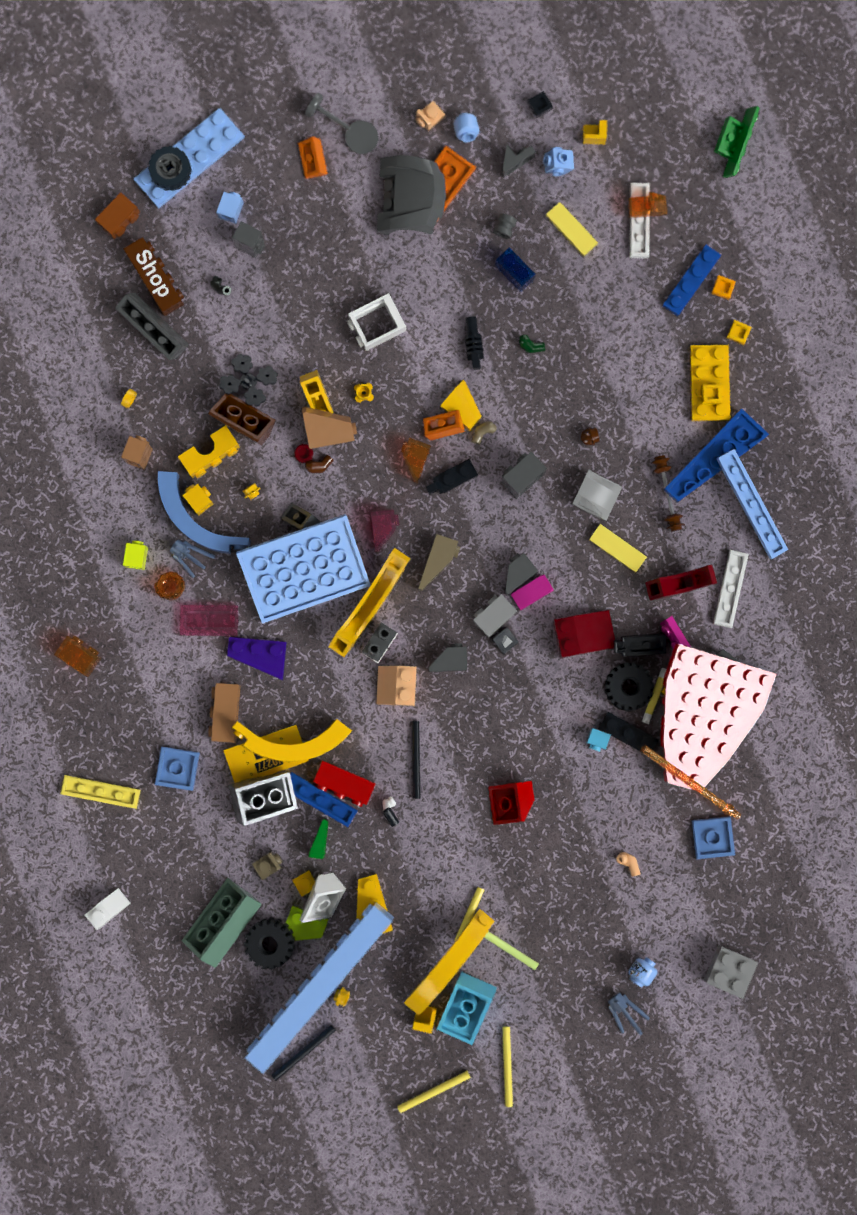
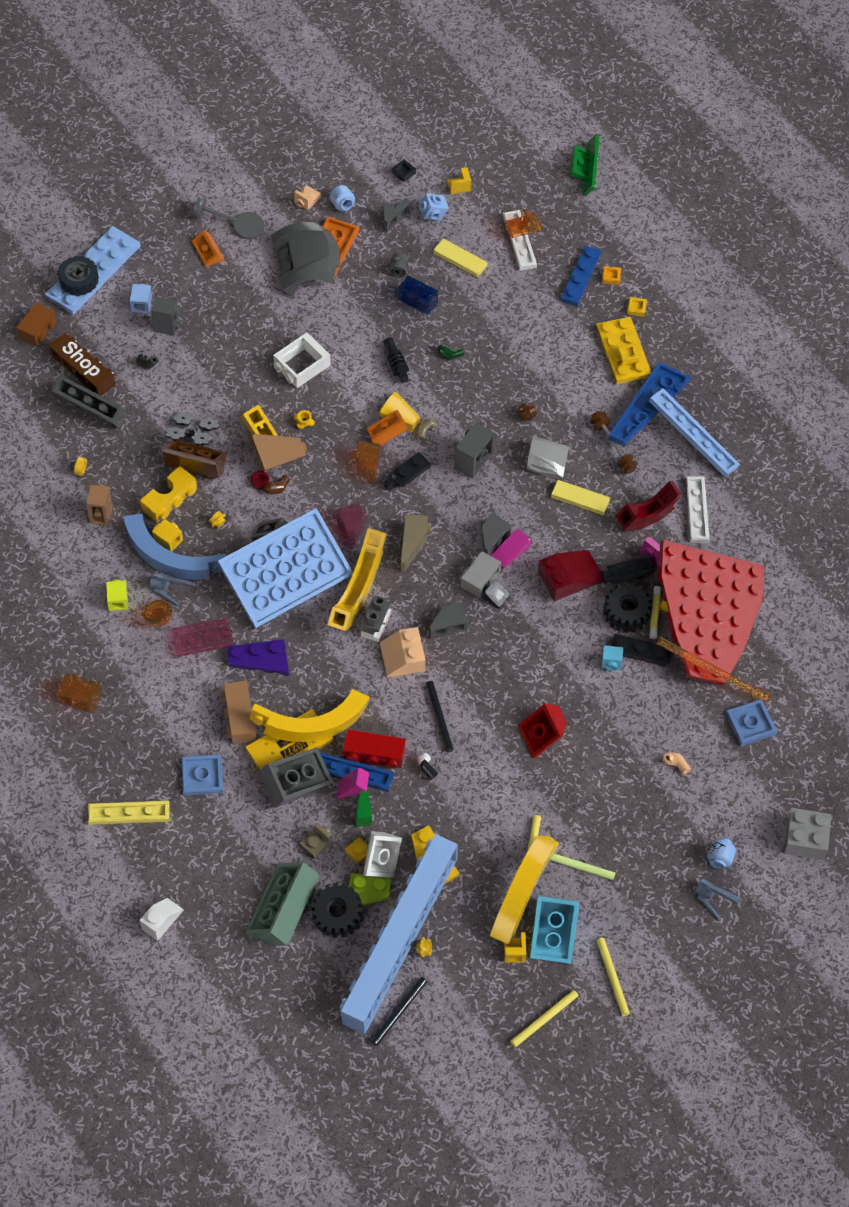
camera: 15 degrees left, 25 degrees down
(314, 819) = (353, 783): none -> dark pink slope

